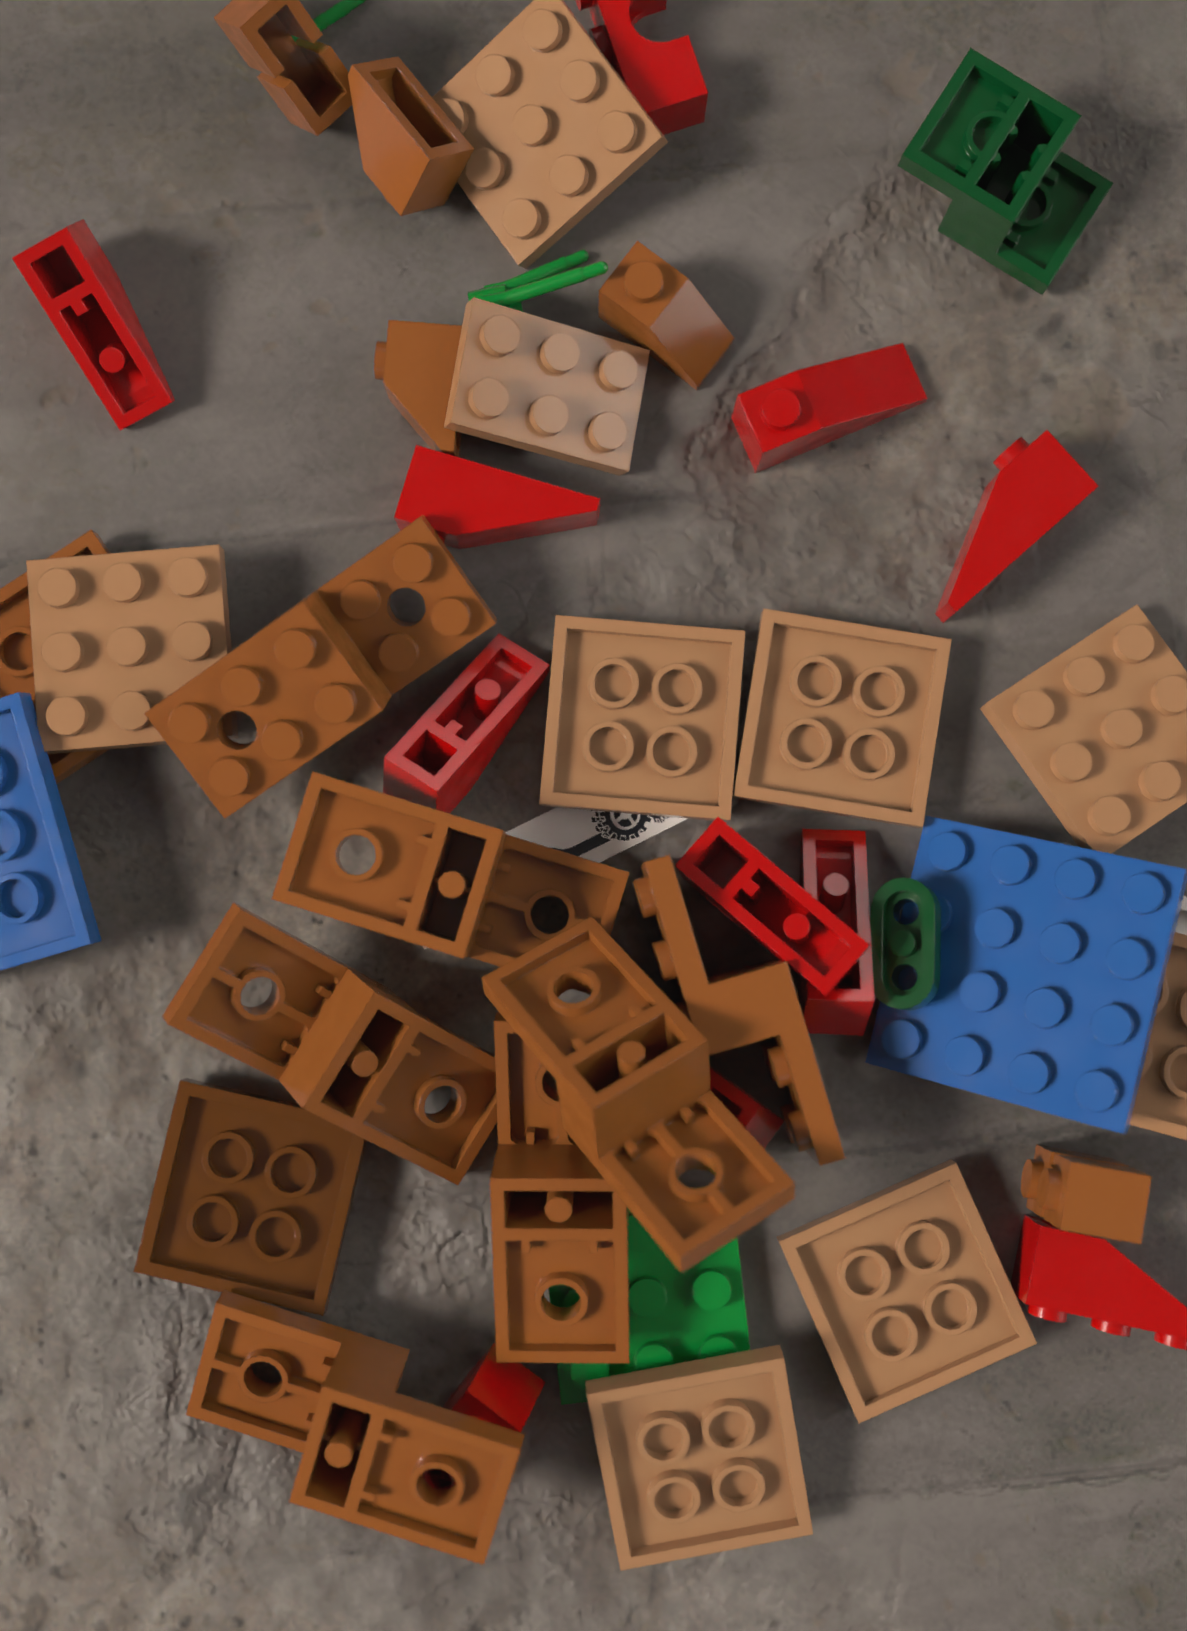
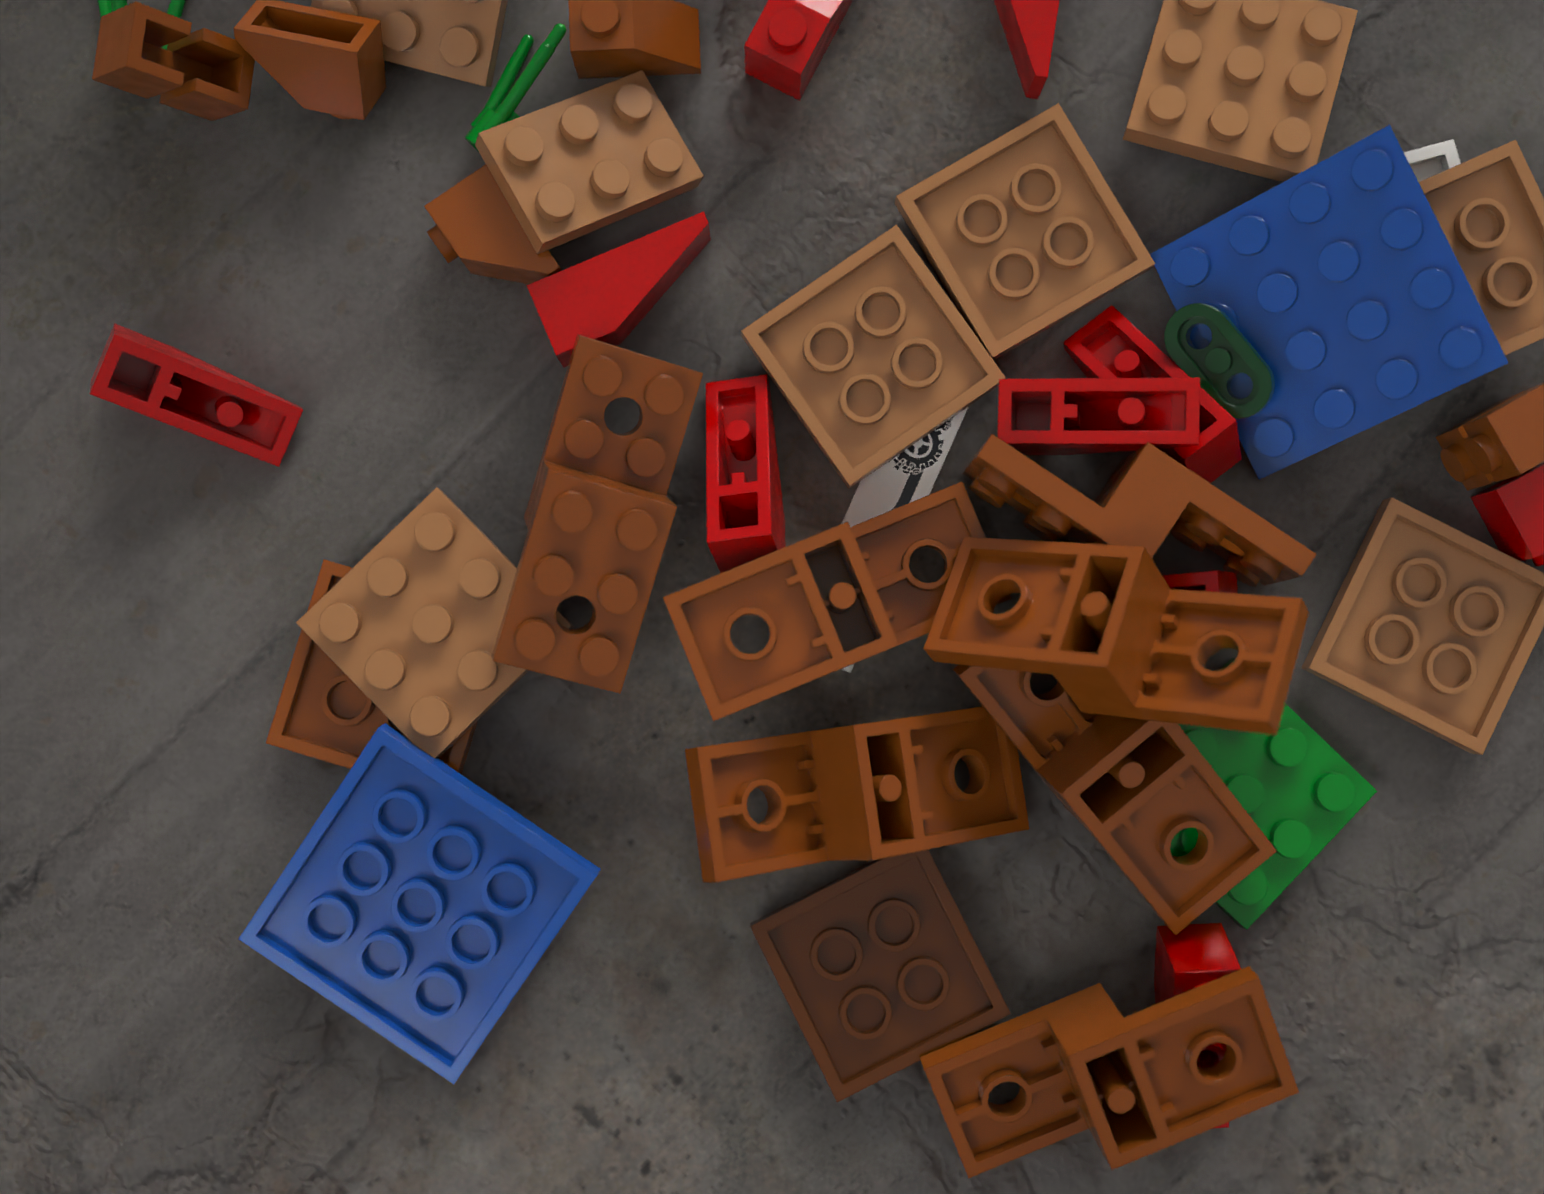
camera: 40 degrees left, 0 degrees up
(699, 1457) = (1386, 879): medium nougat plate -> none

